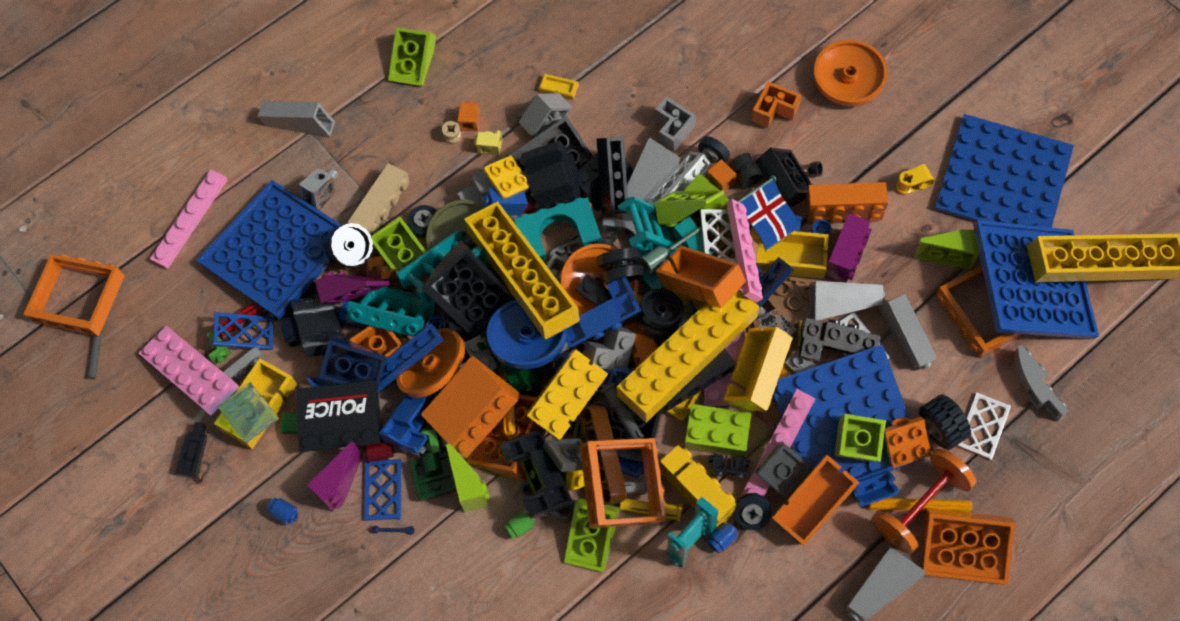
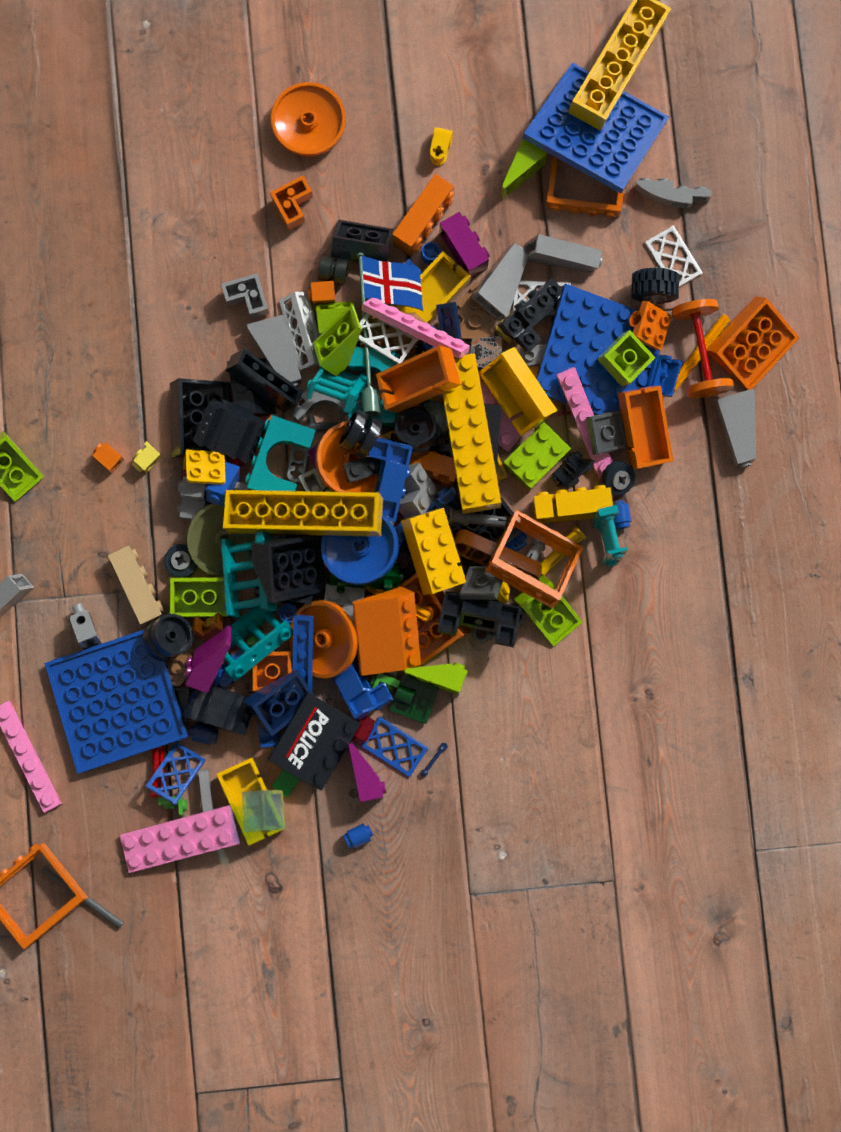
camera: 65 degrees left, 15 degrees up
(192, 452) = (253, 878): black hinge -> none
(451, 137) = (114, 484): tan wheel -> none
(519, 524) = (501, 659): bright green brick -> none
(544, 111) = (156, 393): light grey brick -> none
(553, 84) = (133, 362): yellow tile -> none
(713, 149) = (297, 282): black wheel -> none
(816, 169) = (371, 213): black hinge -> none
(1003, 175) = (488, 75): blue plate -> none

